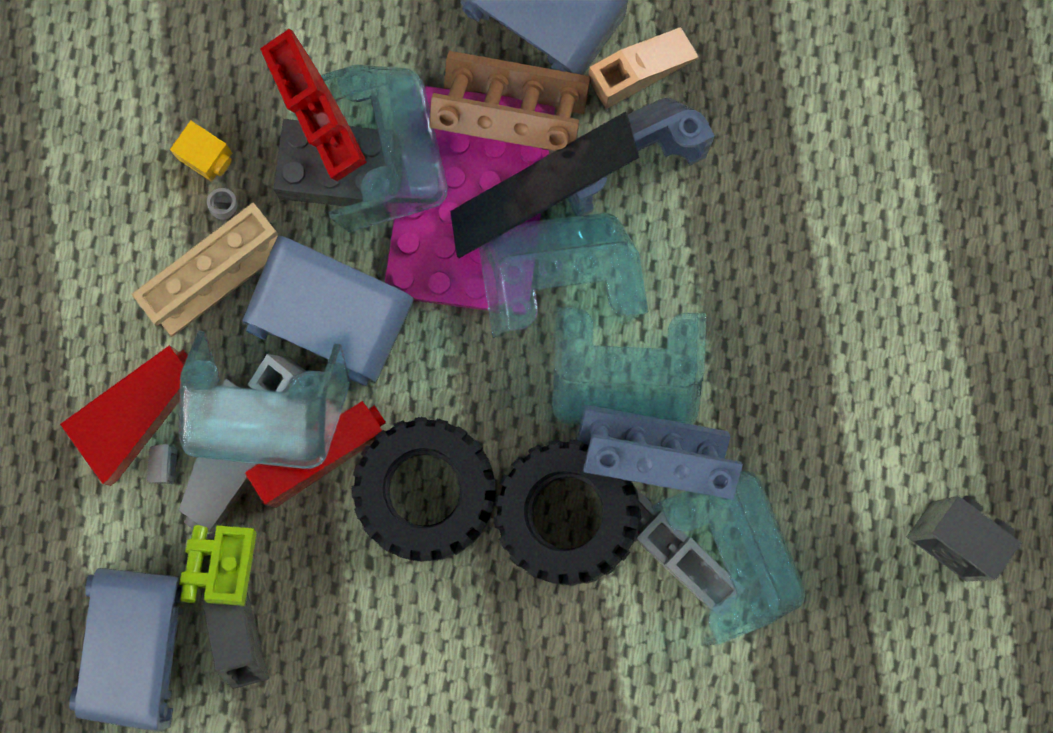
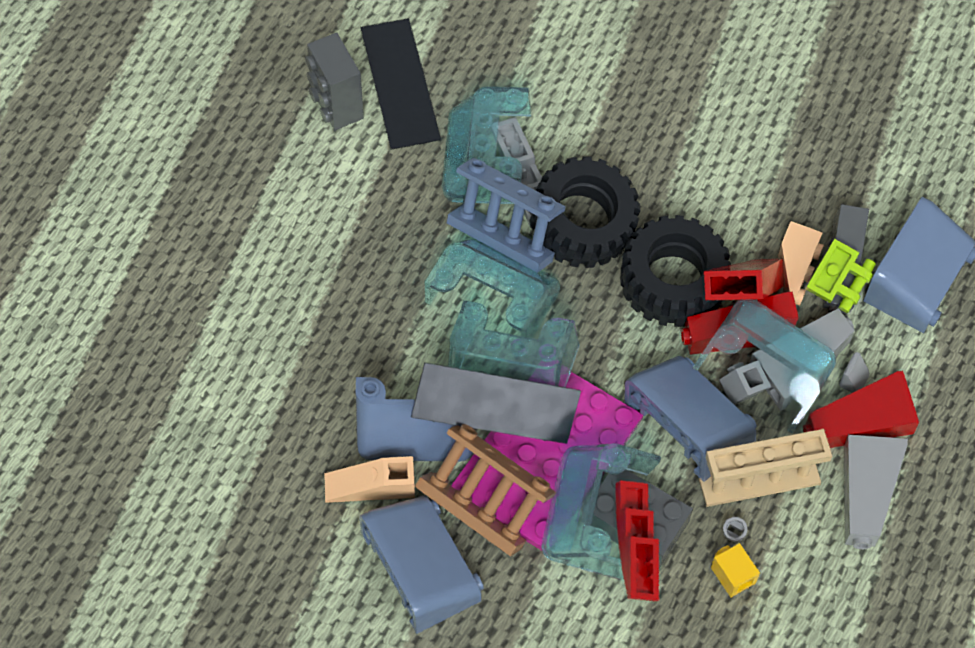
camera: 155 degrees left, 20 degrees down
(92, 330) = (869, 483): none -> light grey slope
(290, 591) = (798, 251): none -> light nougat slope
(325, 494) = (744, 280): none -> red slope
(891, 612) = (400, 84): none -> black window

